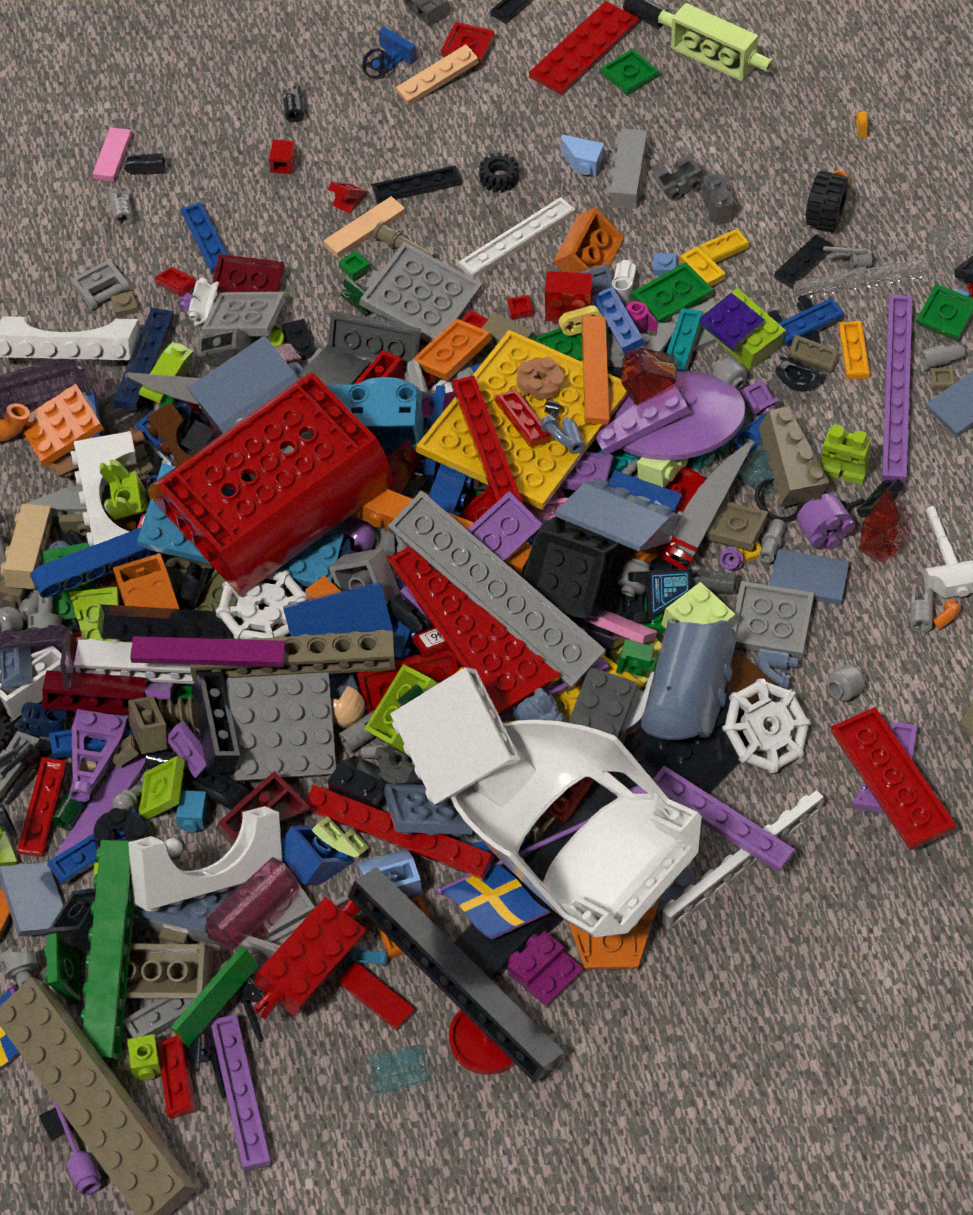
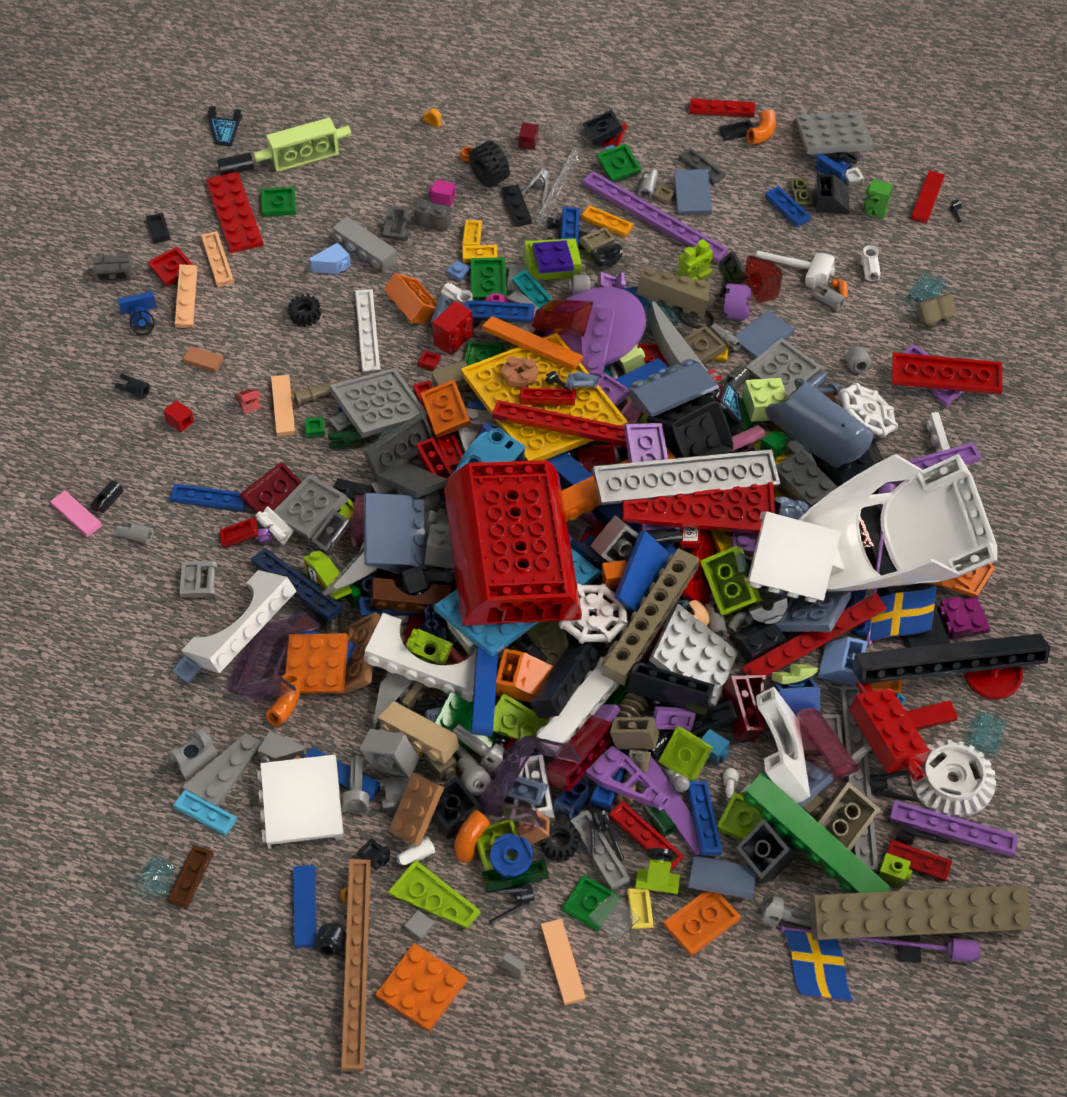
camera: 60 degrees left, 0 degrees up
(63, 968) = (793, 880): green plate -> none
(118, 820) = (711, 789): black plate -> none
(124, 304) = (228, 575): dark tan plate -> none
(208, 651) = (621, 657): magenta tile -> none
(214, 996) = (882, 801): green tile -> none
(300, 1090) = (973, 794): none -> white gear
(372, 135) = (203, 359): none -> nougat tile
(415, 376) = (454, 442): light grey hinge -> none
(416, 184) = (270, 359): black tile -> none
(451, 875) = (863, 629): none -> blue plate
(510, 71) = (217, 259): none -> light nougat tile
(576, 317) = (476, 333): light yellow beam -> none
(725, 558) = (727, 363): medium lavender plate -> none
(759, 190) = (442, 193): none -> dark pink brick
(912, 215) = (528, 136): none -> dark red brick

